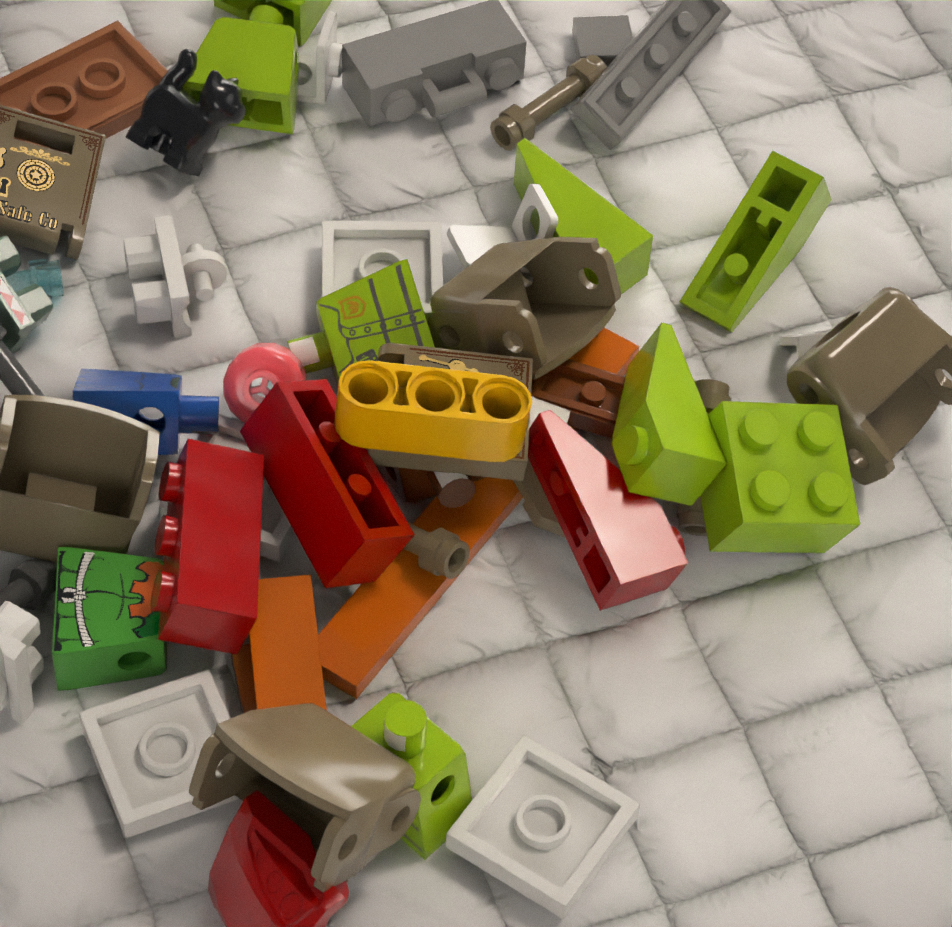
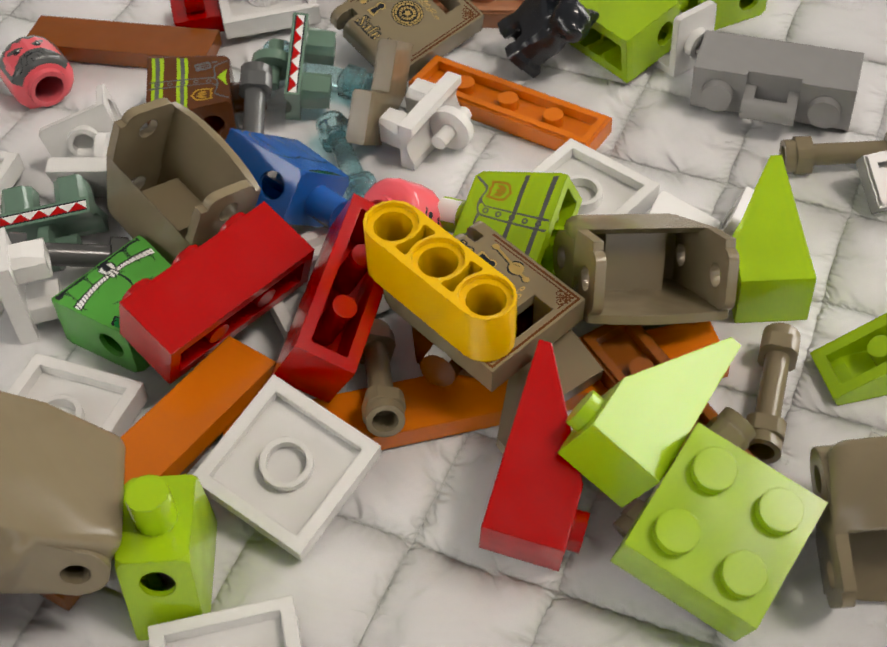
camera: 50 degrees right, 5 degrees down
(87, 342) = (332, 134): none -> clear light blue bar
(95, 267) = (386, 91): none -> dark tan tile
(218, 217) = (519, 108): none -> orange tile
(415, 643) = (287, 466): none -> white plate
(659, 306) = (777, 356): none -> dark tan bar

